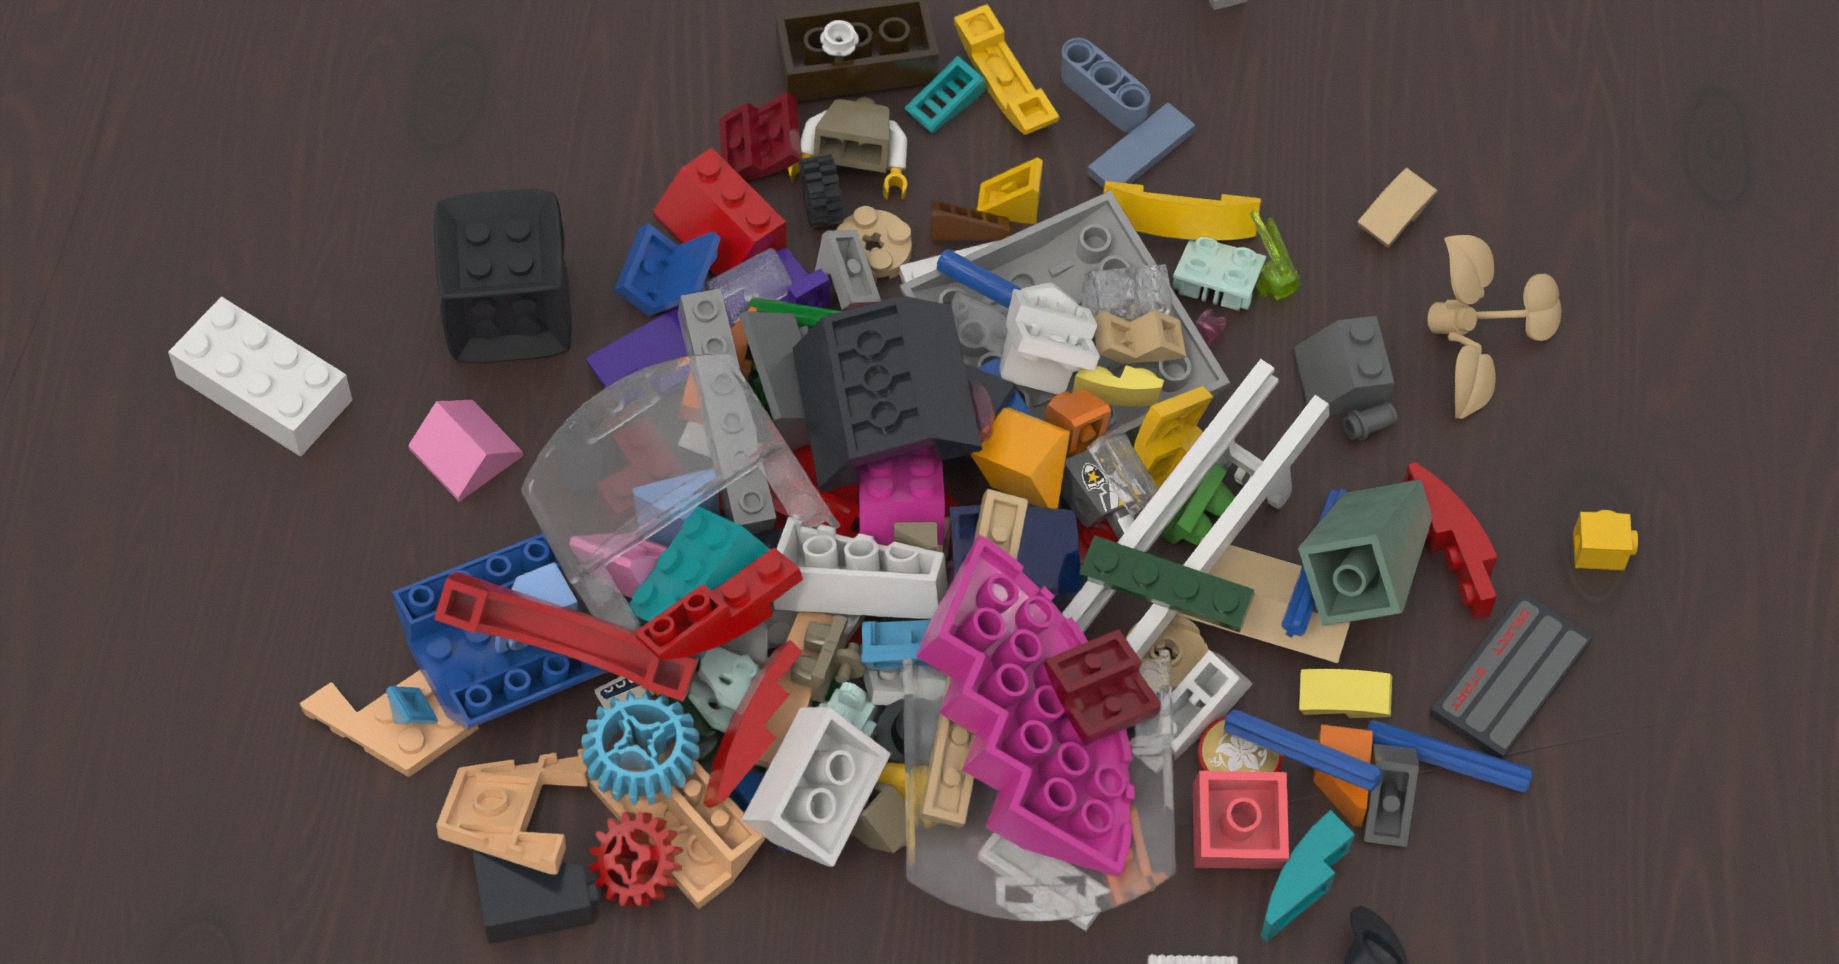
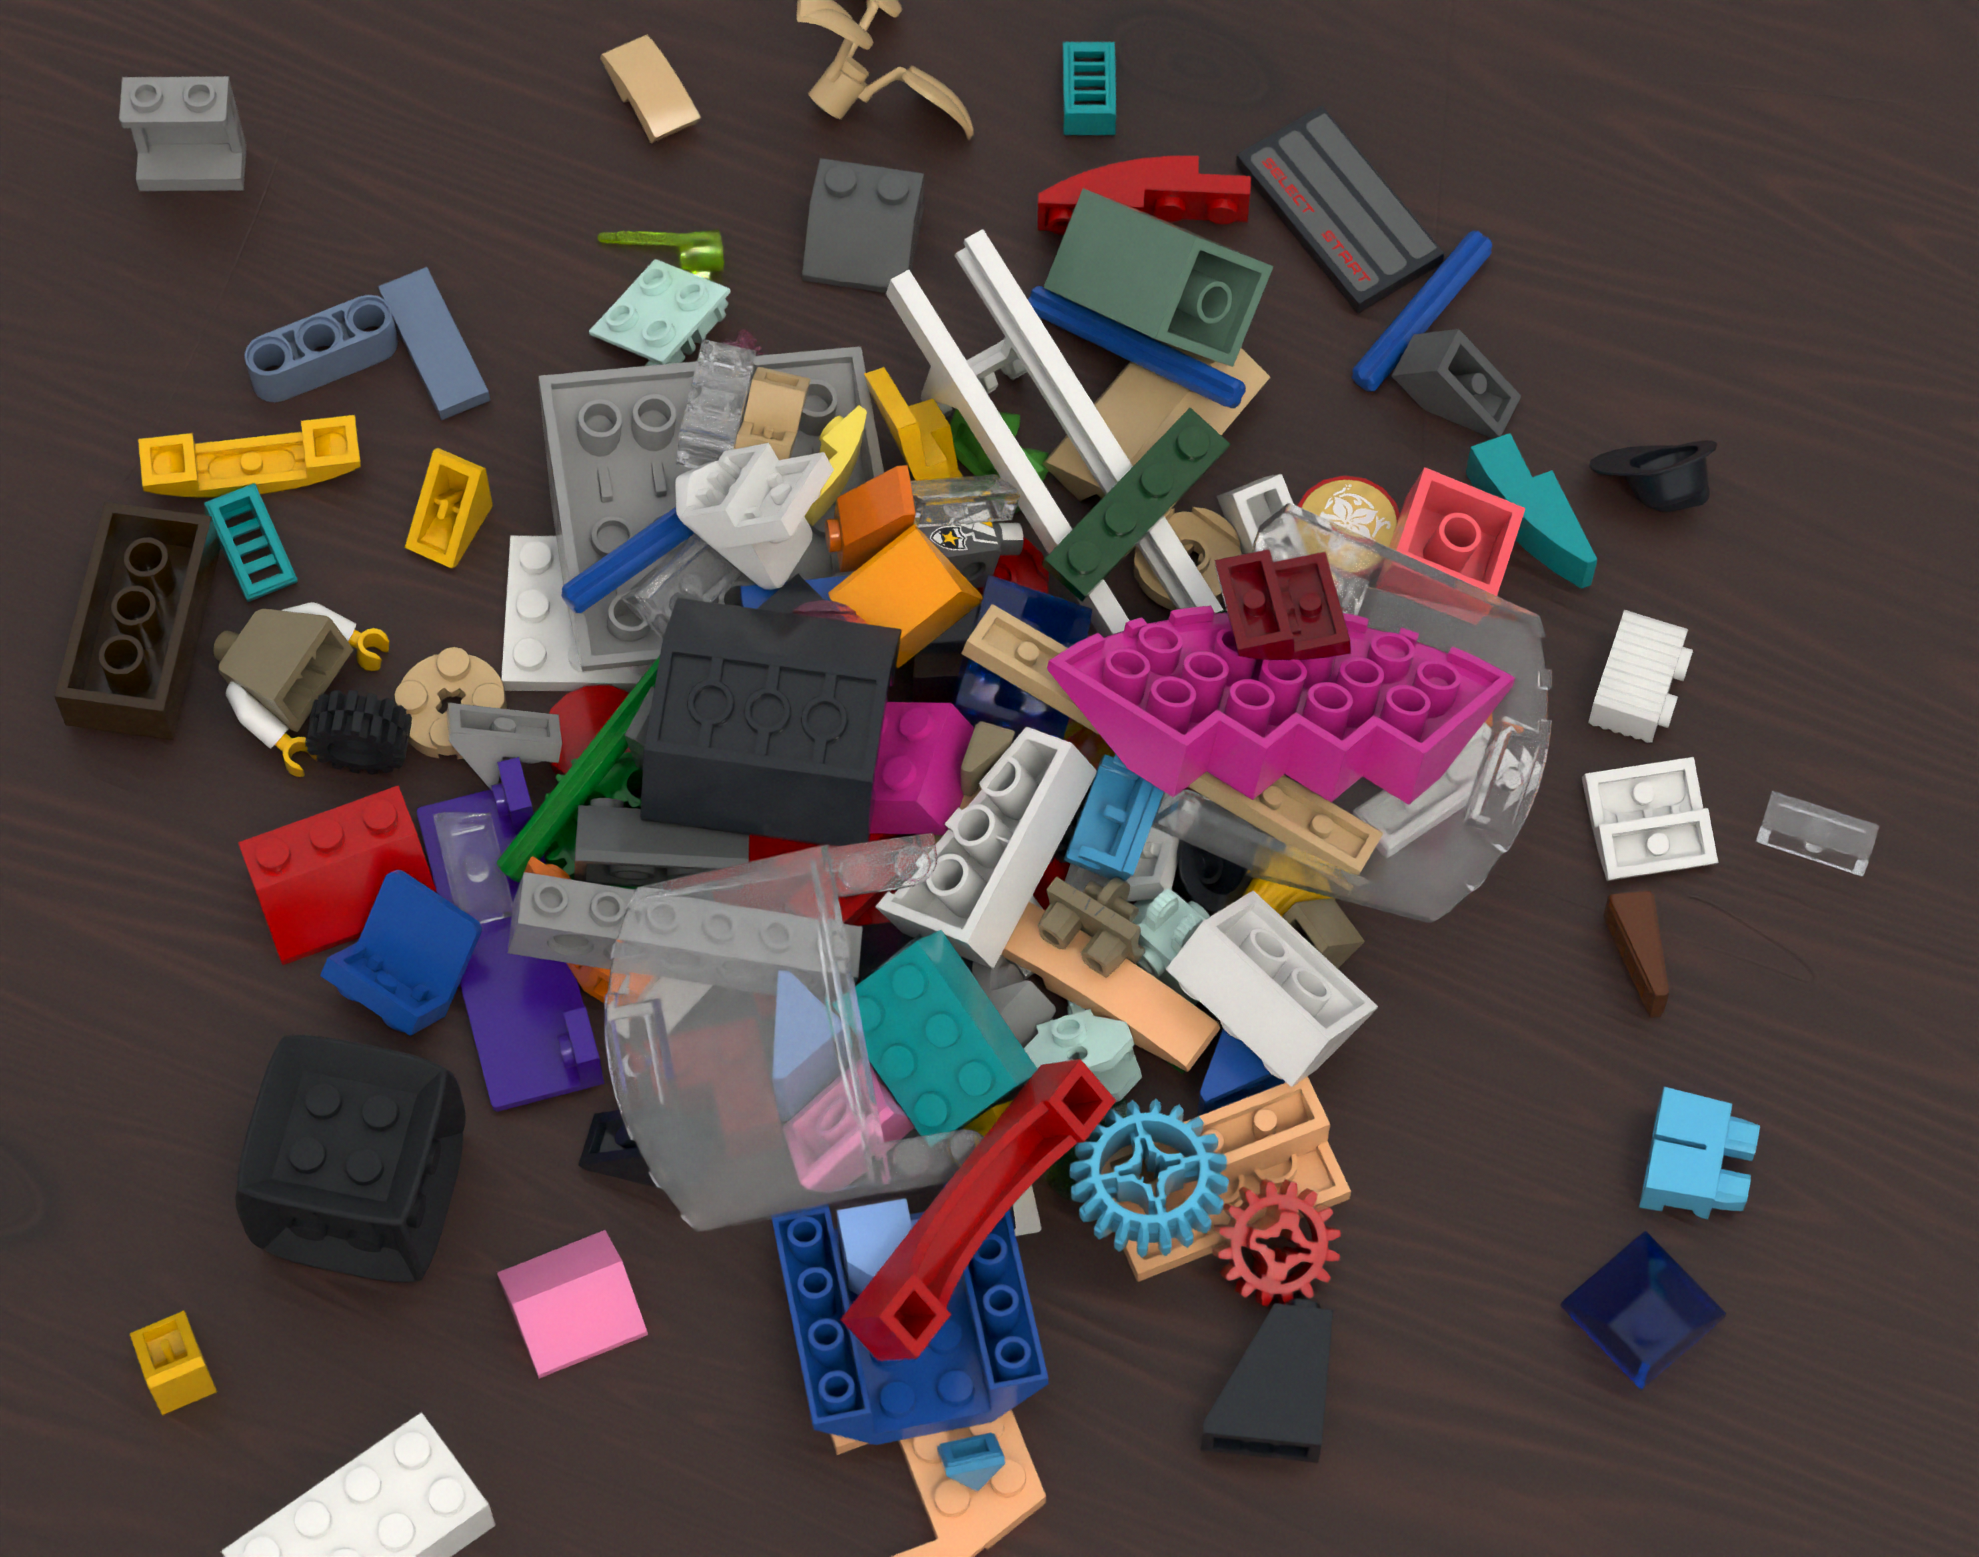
camera: 70 degrees left, 5 degrees up
(351, 239) = (172, 1363): none -> yellow slope
(495, 802) = (1149, 1395): light nougat wing -> none
(718, 616) = (1014, 1007): red slope -> none
(746, 736) = (1176, 1046): red slope -> none
(761, 138) = (226, 785): dark red slope -> none
(839, 31) = (138, 612): white plate -> none
(961, 223) = (471, 581): reddish brown slope -> none
(1186, 216) = (564, 335): yellow slope -> none
(1303, 750) = (1390, 444): blue axle -> none
(1345, 691) = (1309, 384): light yellow slope -> none
(1346, 797) = (1412, 420): orange slope -> none
(1360, 424) = (944, 228): dark grey pin -> none
(1515, 497) = (1089, 118): none -> teal slope
(1603, 540) = (1202, 46): yellow brick -> none

